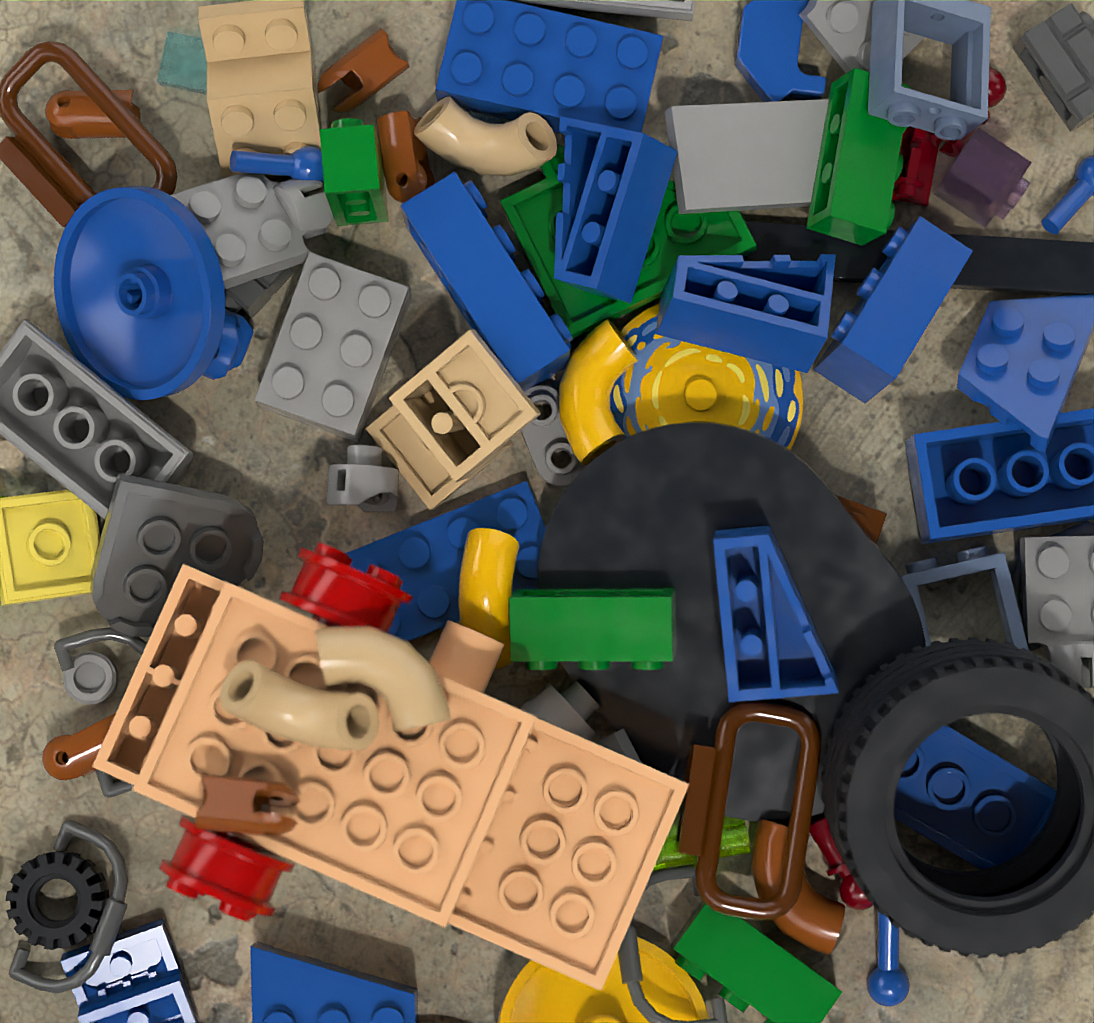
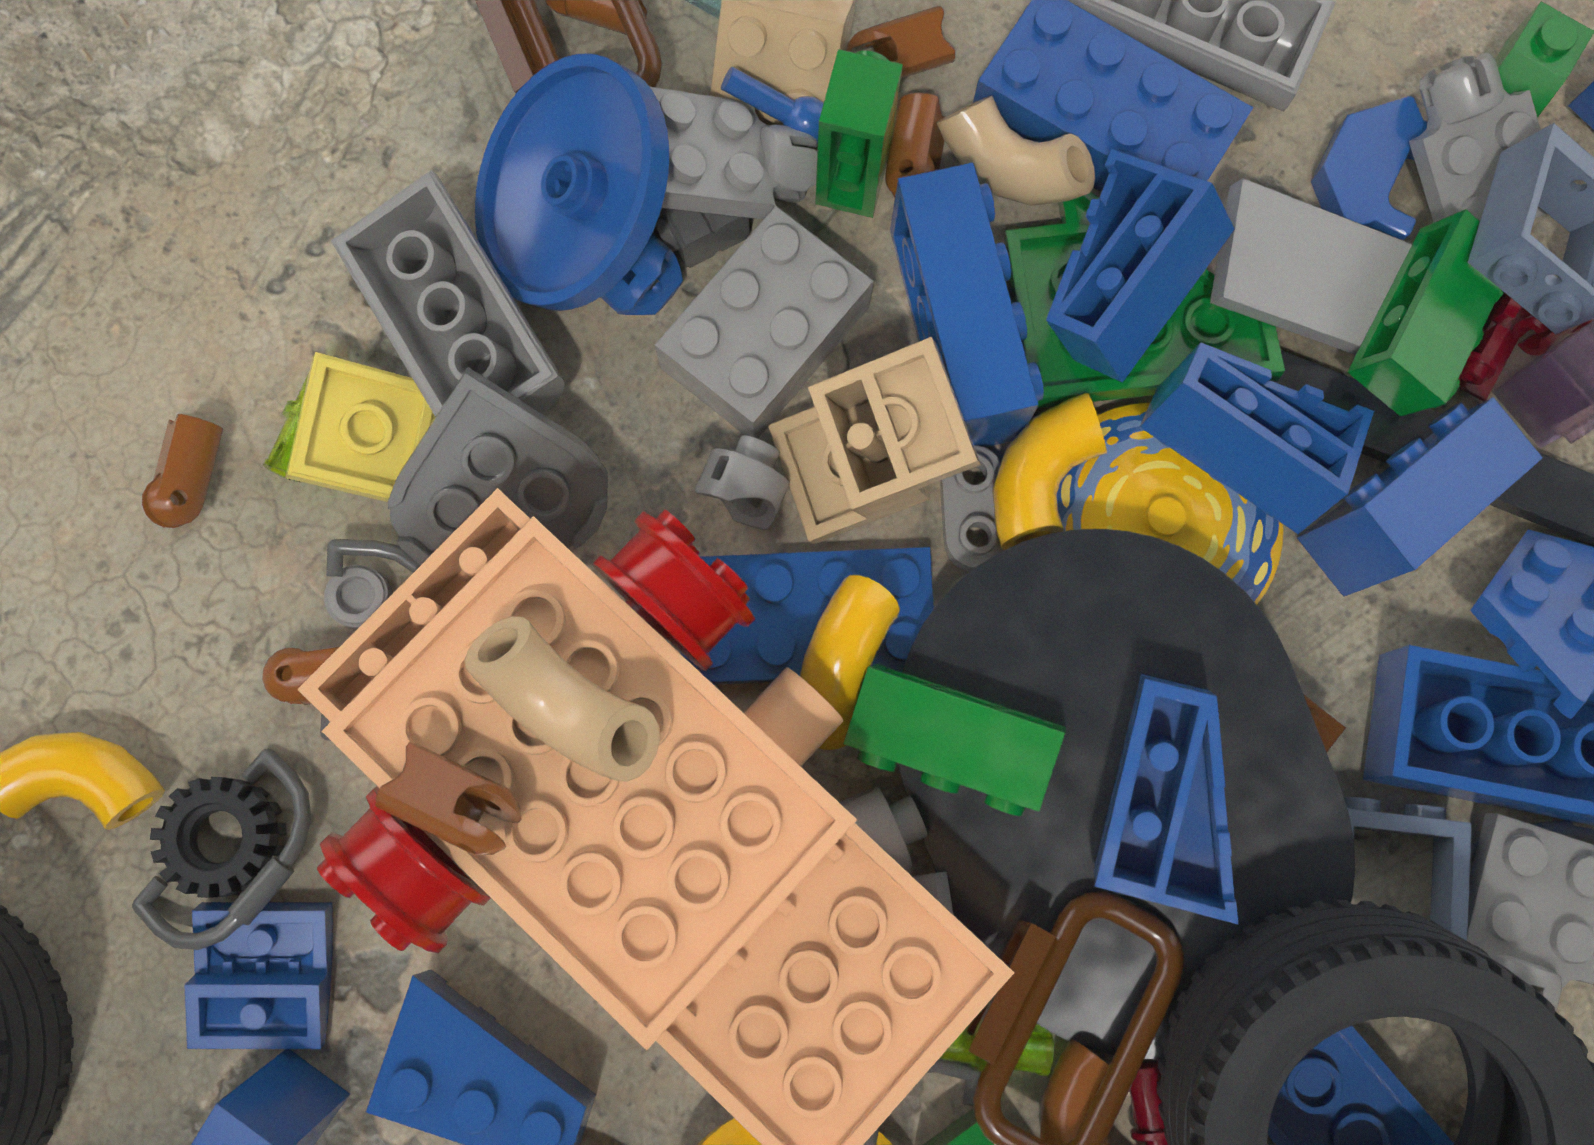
camera: 20 degrees right, 5 degrees down
(387, 666) = (693, 689): tan cylinder -> none

